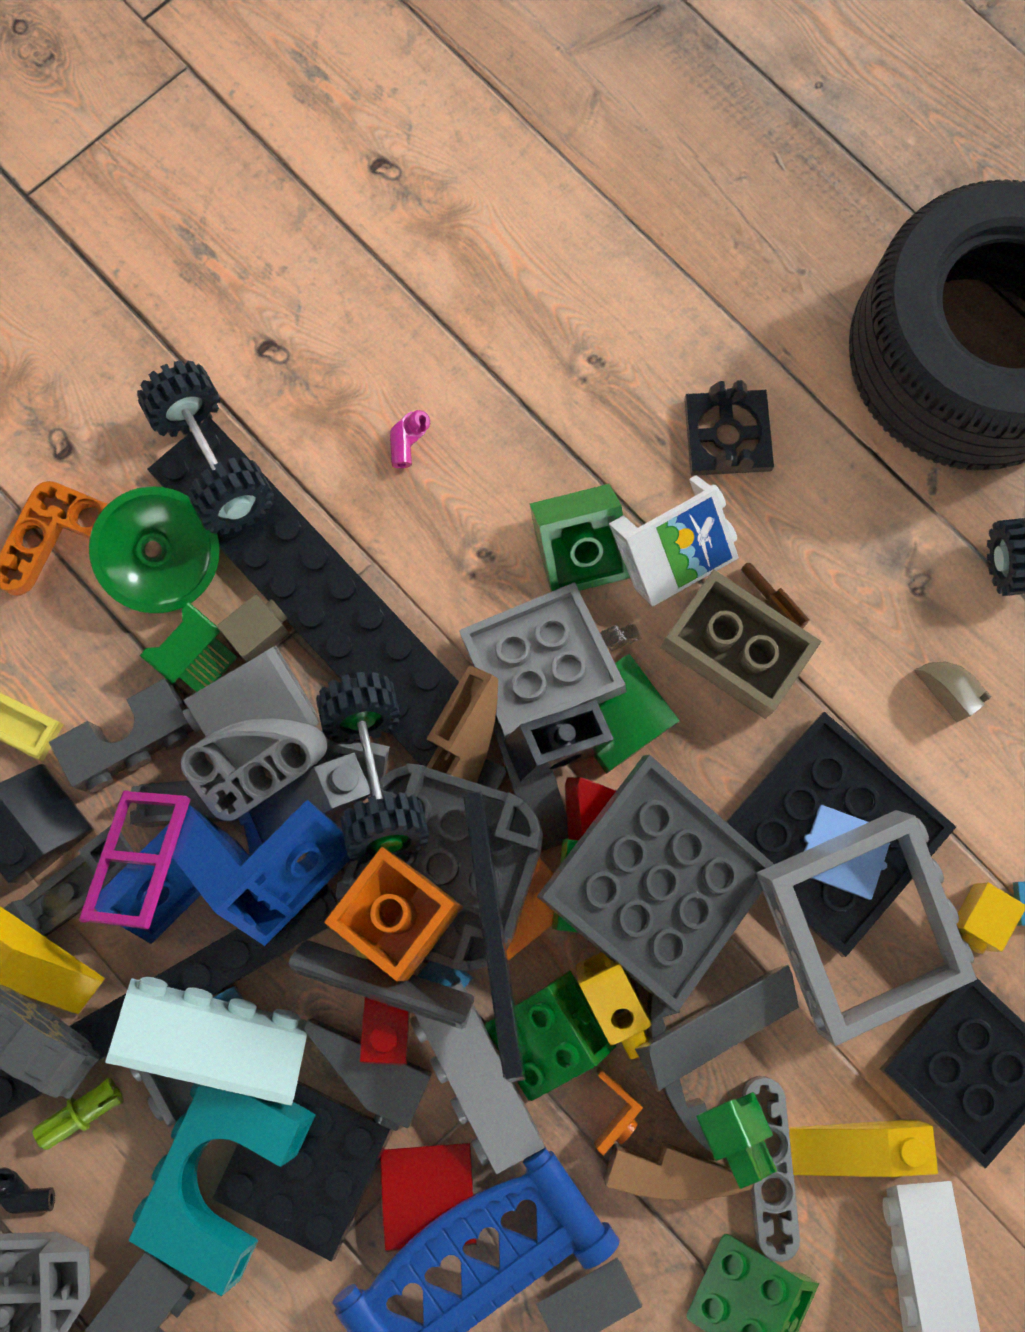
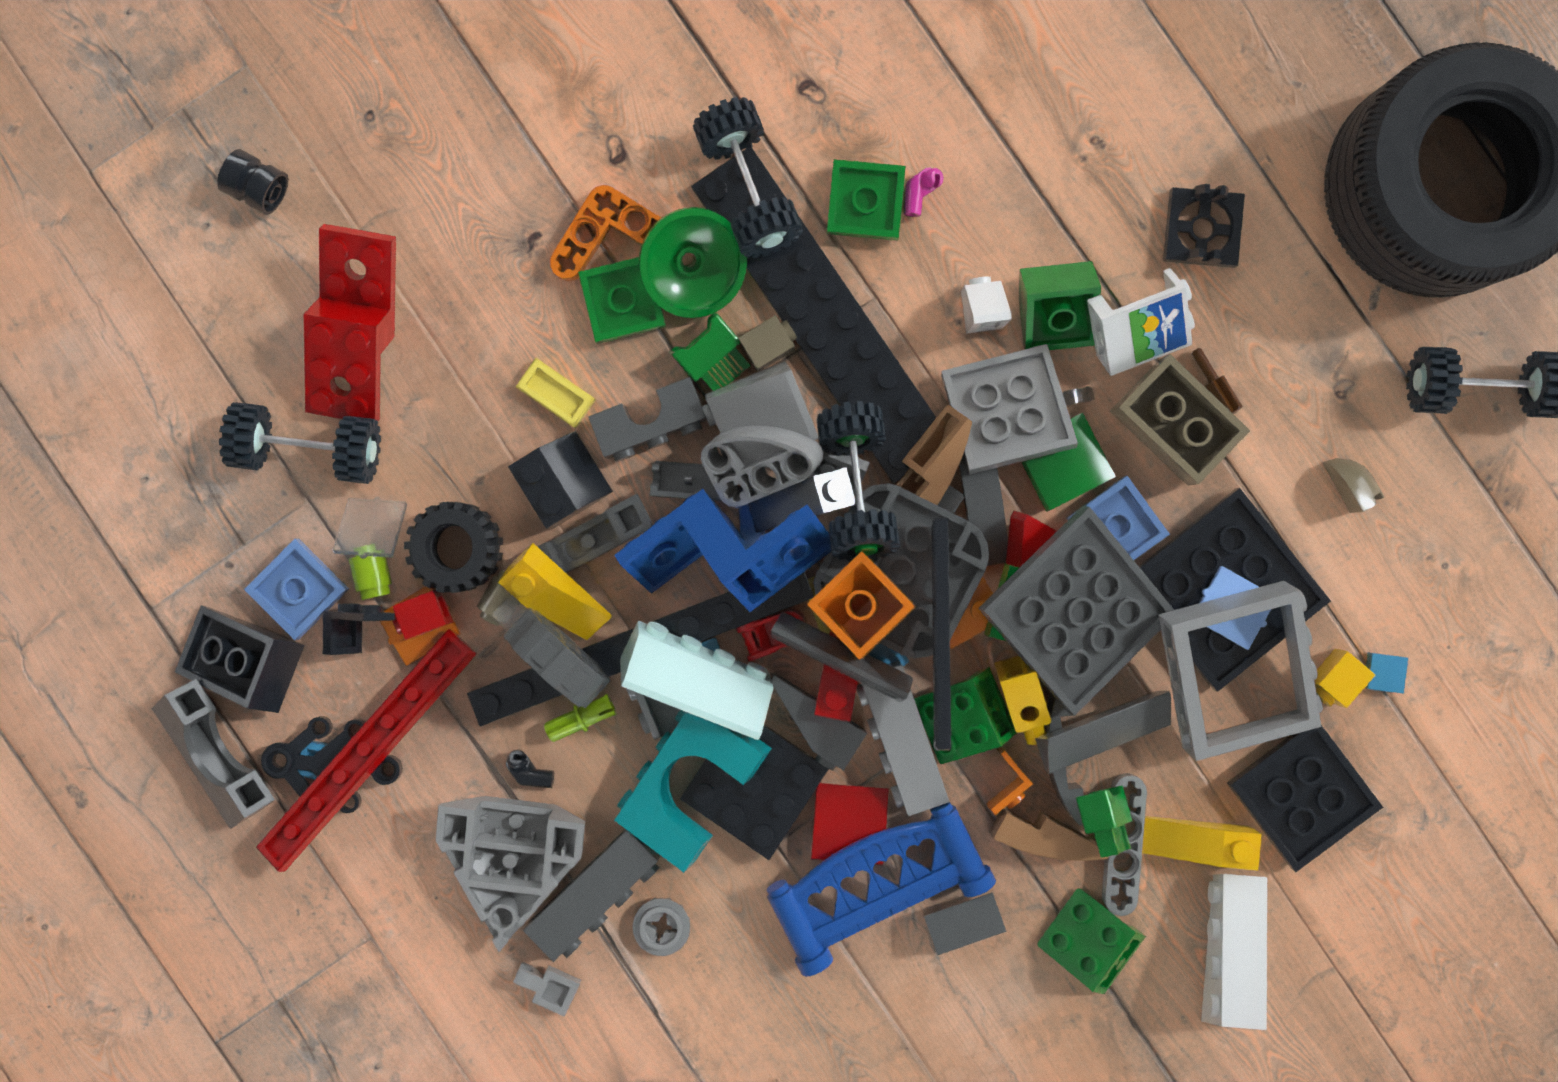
camera: 10 degrees right, 10 degrees up
(76, 609) = (619, 301): none -> green plate
(160, 861) = (678, 533): dark pink window -> none
(284, 982) = (762, 629): none -> red piece
(346, 456) = (866, 200): none -> green plate
(496, 550) = (984, 305): none -> white slope
(558, 740) = (1014, 481): black brick -> none
(703, 765) = (1128, 517): none -> medium blue plate

